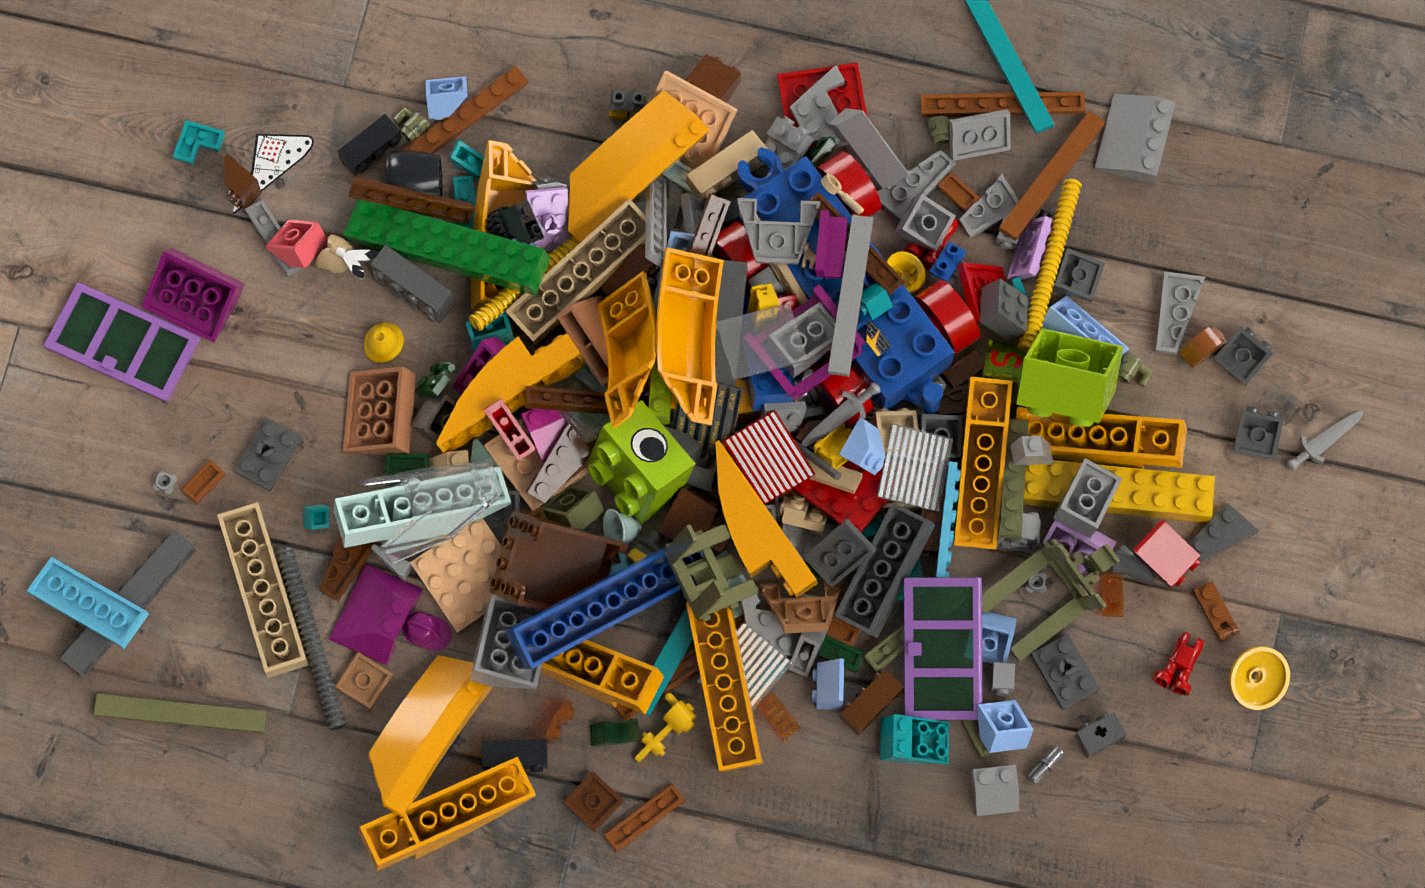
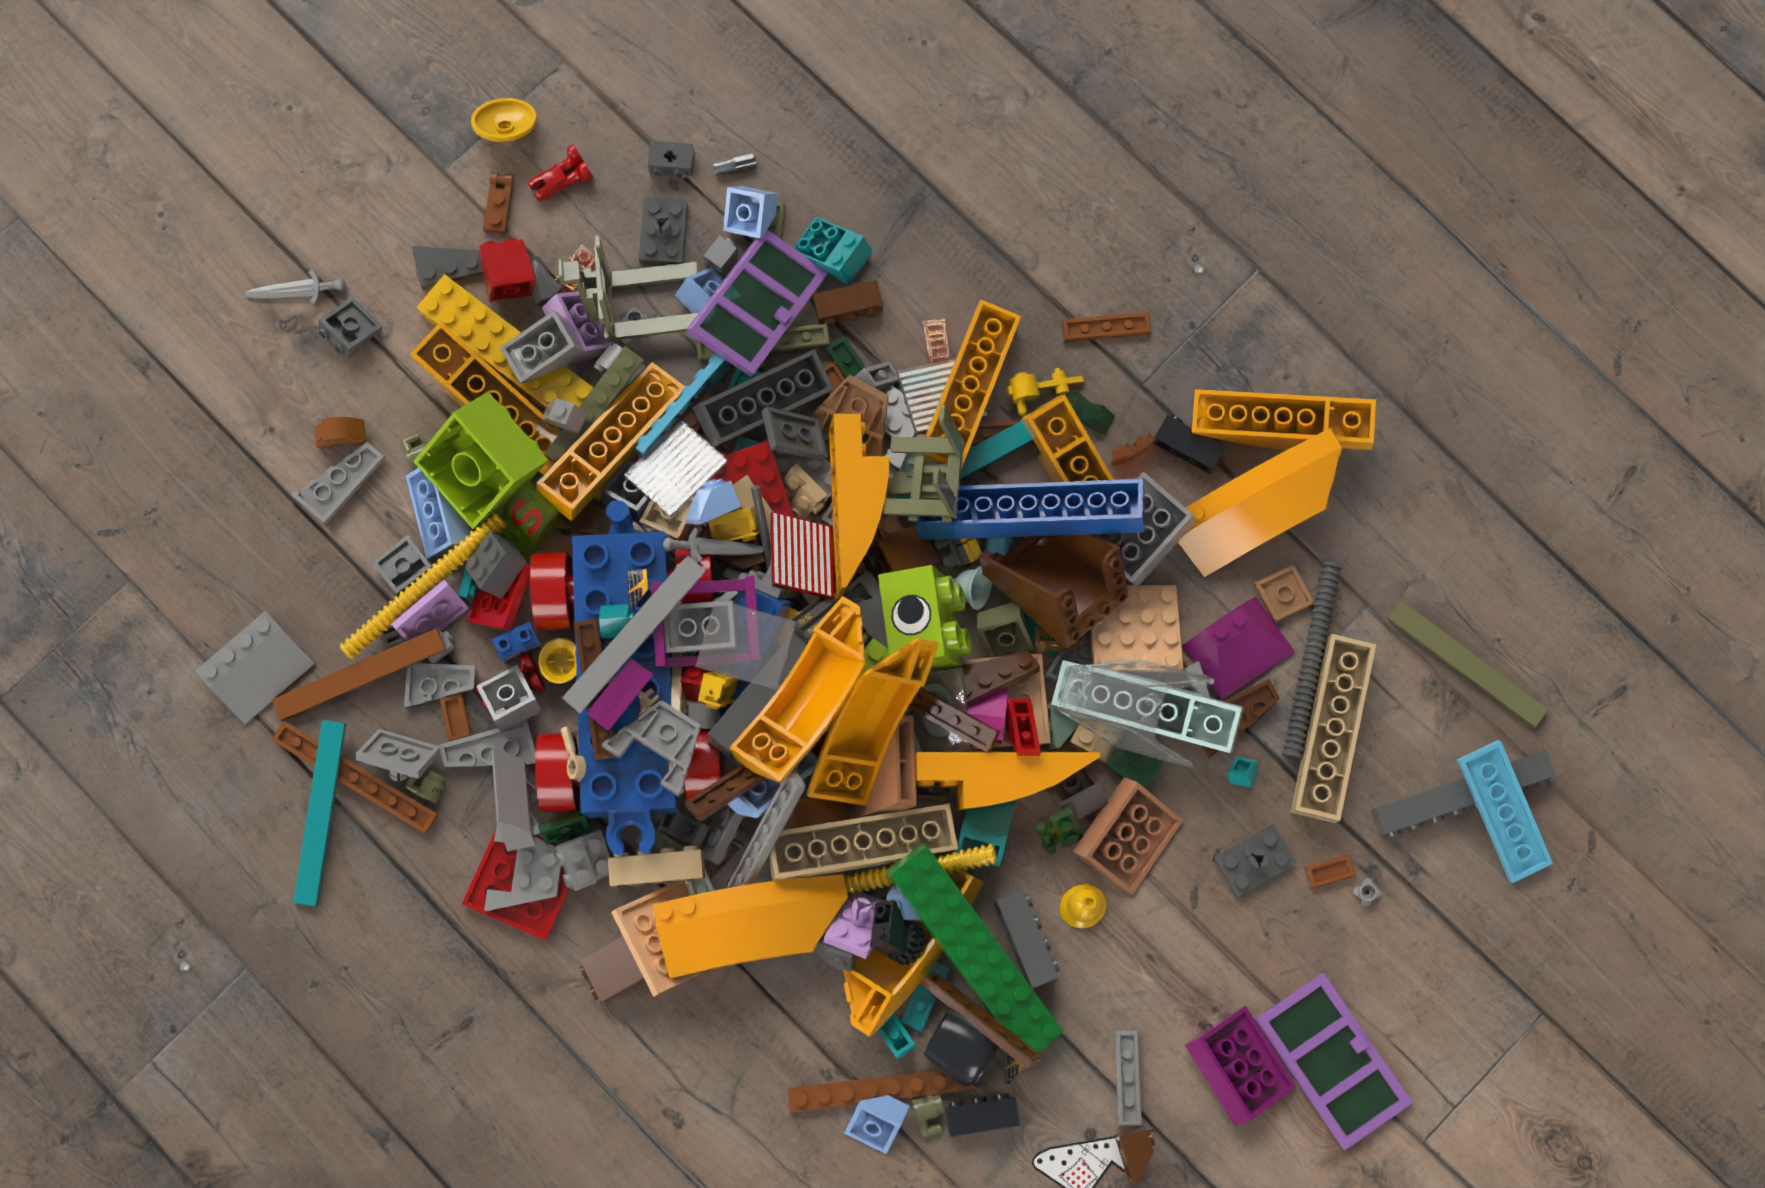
camera: 150 degrees left, 5 degrees up
(298, 242) = (1111, 1053): coral slope -> none
(341, 256) = (1078, 1012): hair -> none
(427, 631) = (1200, 604): magenta piece -> none
(483, 354) = (1010, 813): magenta slope -> none
(593, 801) = (1143, 364): reddish brown plate -> none
(624, 101) = (708, 998): dark grey hips -> none
(829, 684) = (875, 336): light blue slope -> none
(995, 790) = (790, 169): light grey slope -> none
(1244, 355) = (308, 402): dark grey plate -> none

